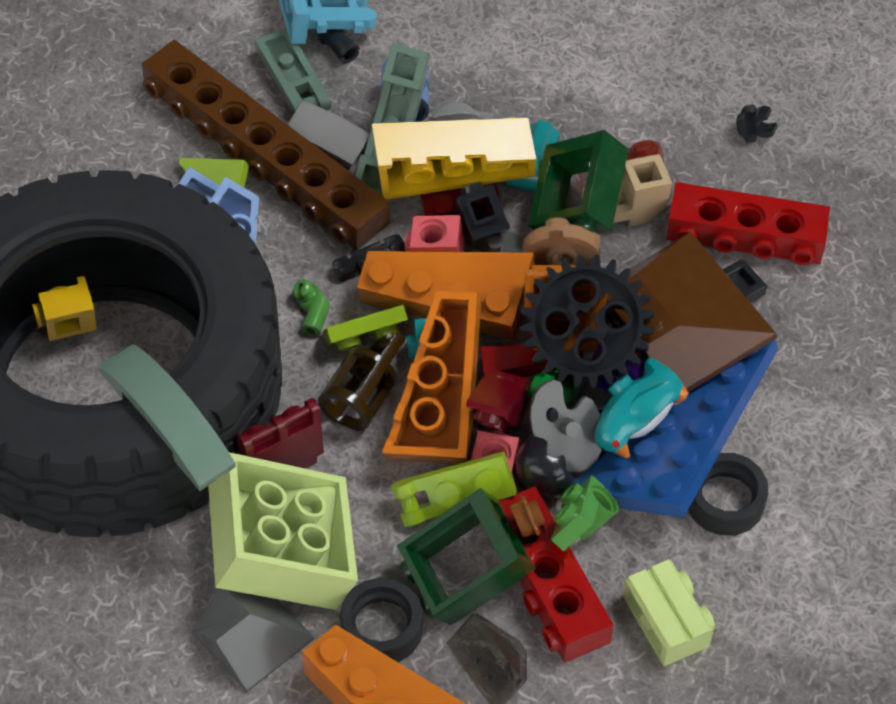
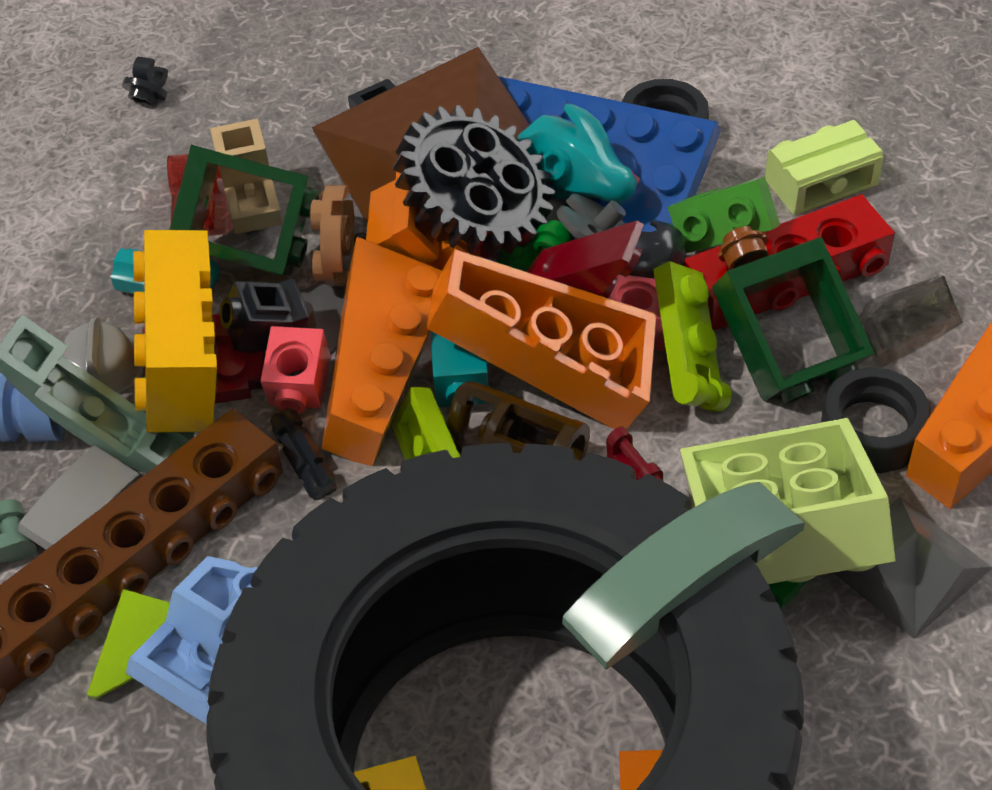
camera: 85 degrees left, 5 degrees down
(749, 223) = (299, 88): red brick -> none

